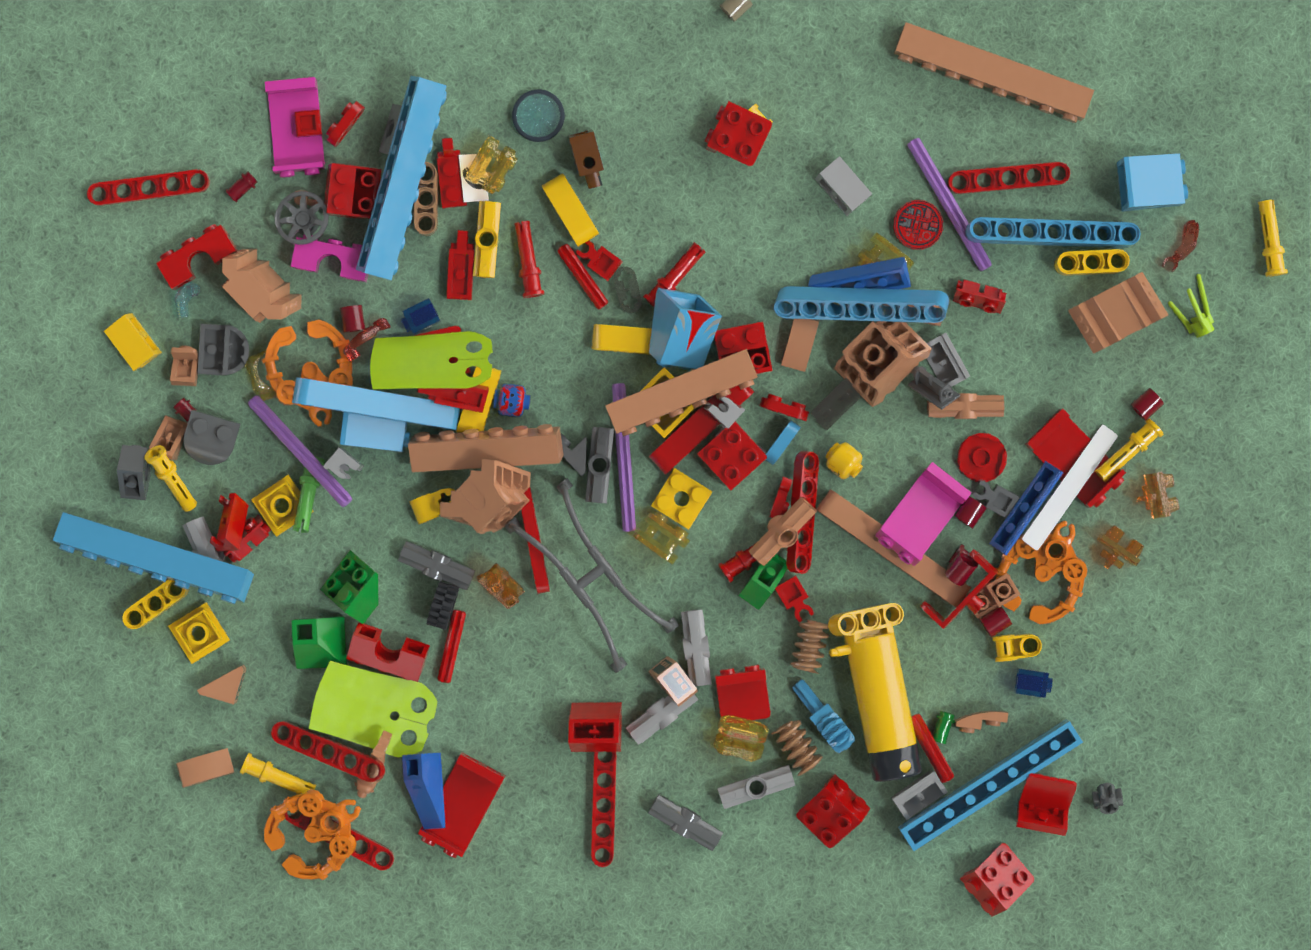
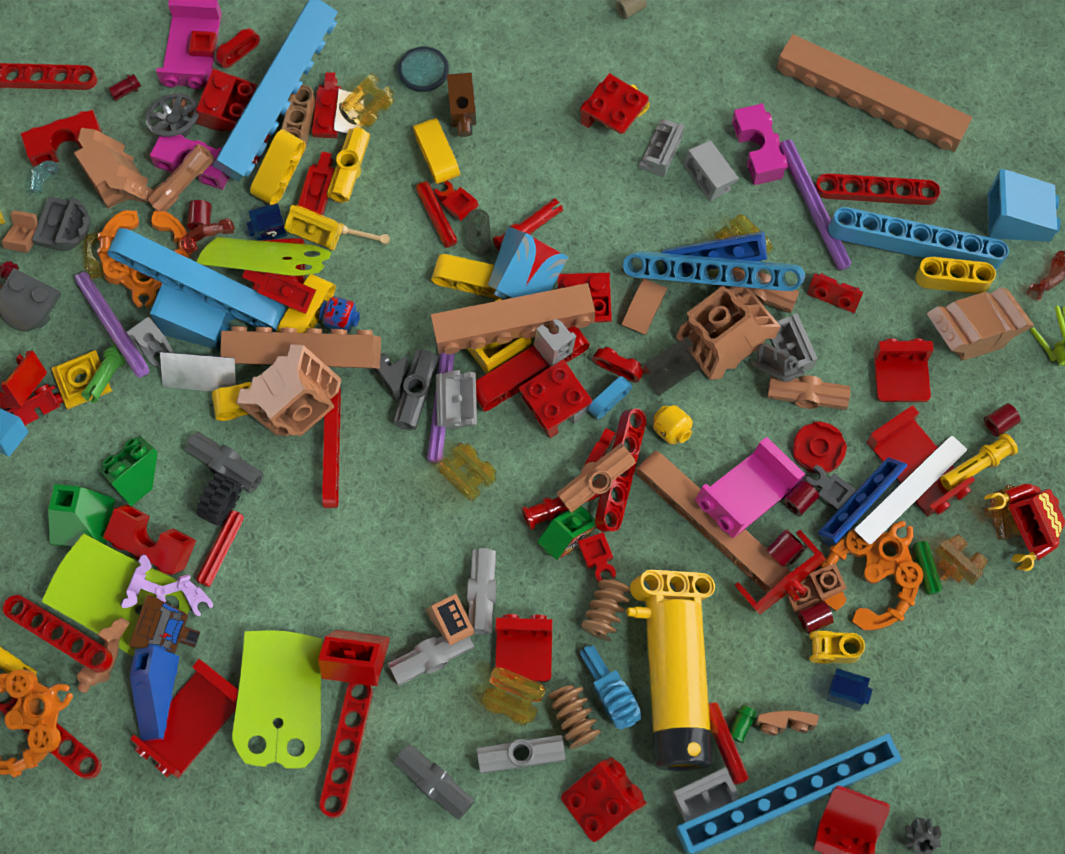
camera: 15 degrees right, 20 degrees down
(337, 276) = (193, 164): none -> nougat axle
(390, 696) = (192, 593): none -> lavender piece
(392, 483) = (197, 371): none -> flat silver sticker
(419, 259) = (277, 167): none -> yellow beam
(419, 731) = (162, 627): none -> torso
(468, 312) = (313, 226): none -> yellow hinge
(501, 585) = (285, 489): clear orange hips -> none
(529, 272) = (384, 200): red pin -> none
(532, 761) = (283, 682): none -> lime piece
(536, 310) = (384, 239): none -> tan hinge
(602, 567) = (315, 433): dark grey bar -> none
(640, 471) = (456, 399): none -> light grey hinge
(685, 514) = (495, 422): yellow piece -> none
(791, 168) = (662, 147): none -> light grey hinge
(881, 128) = (755, 125): none -> dark pink arch
(918, 225) = (781, 217): tile -> none
(1051, 372) = (903, 370): none -> red bracket
(1091, 558) = (926, 562): none -> green axle
(1183, 500) = (1036, 517): none -> red torso

